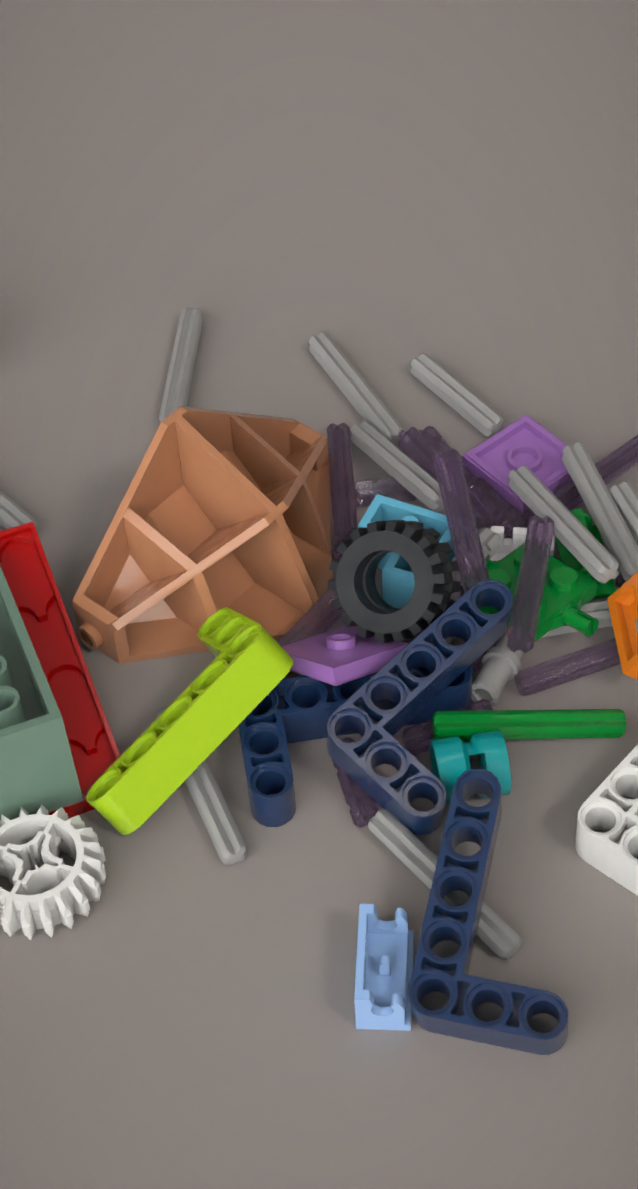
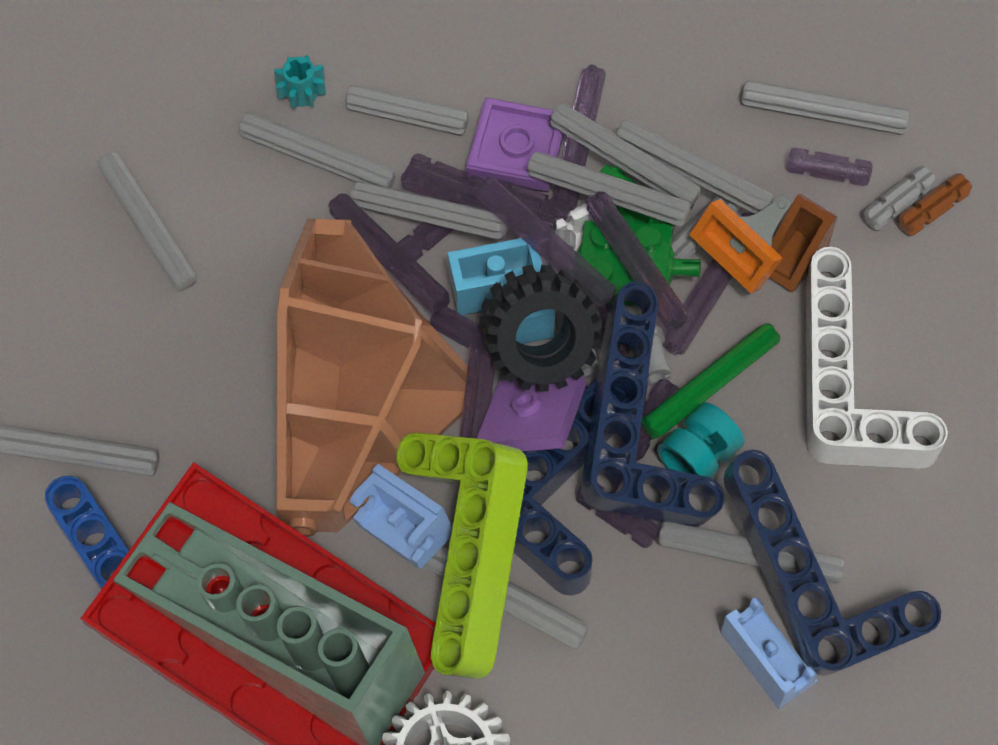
camera: 40 degrees left, 15 degrees up
(167, 671) = (401, 517): none -> light blue hinge
(385, 331) = (300, 81): none -> teal gear

